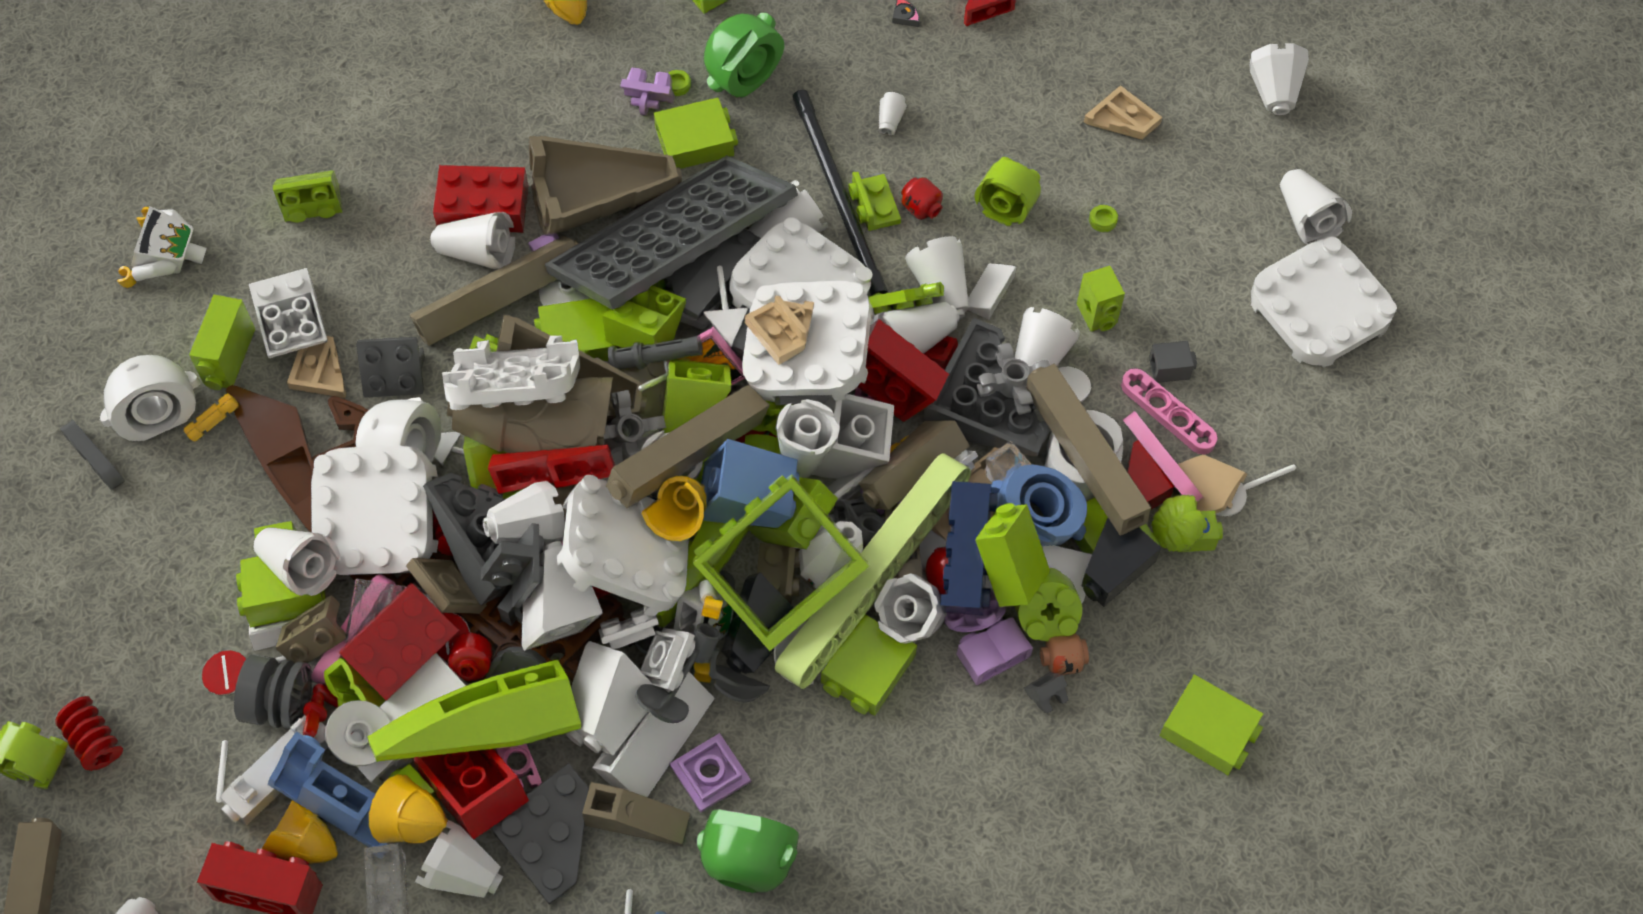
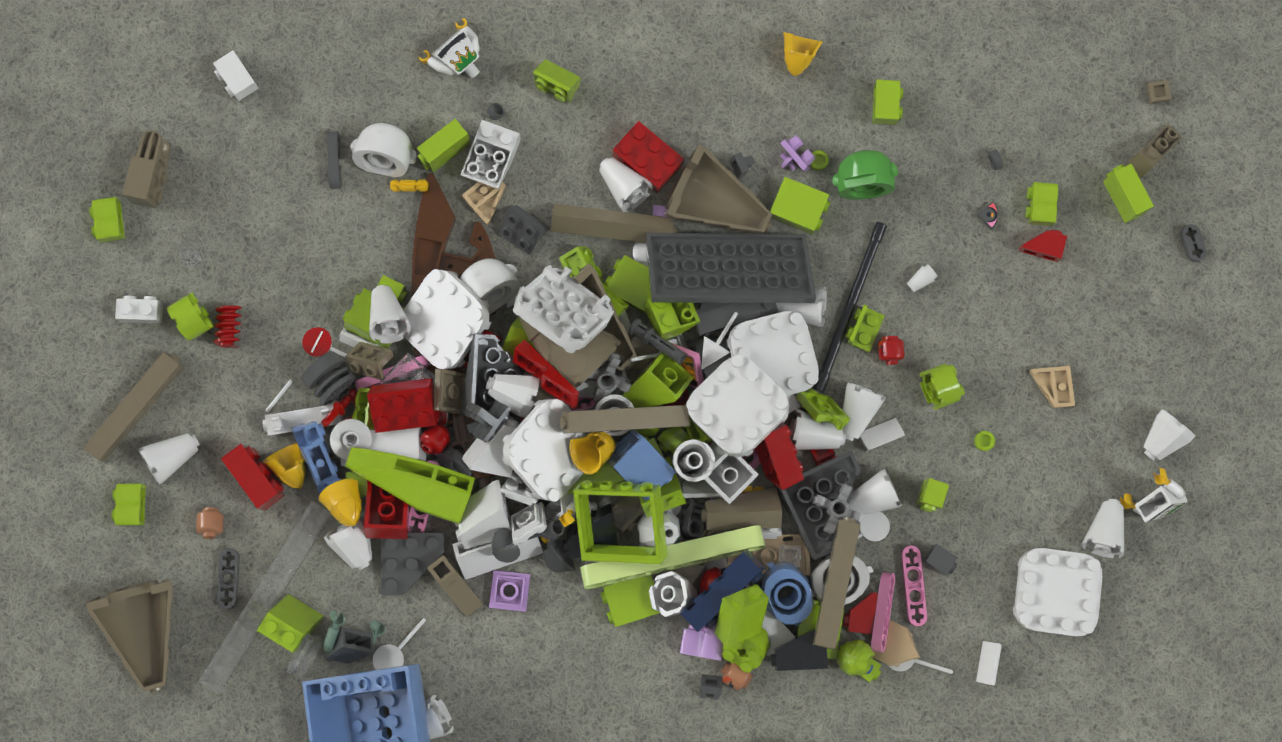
camera: 35 degrees right, 20 degrees up
(258, 273) = (495, 107): none -> dark grey hinge
(594, 133) = (740, 165): none -> dark grey tile
(747, 850) = (491, 650): bright green piece -> none
(781, 327) = (727, 391): tan slope -> none
(1324, 425) = (988, 663): none -> white slope
(1336, 135) = (1160, 502): none -> white torso

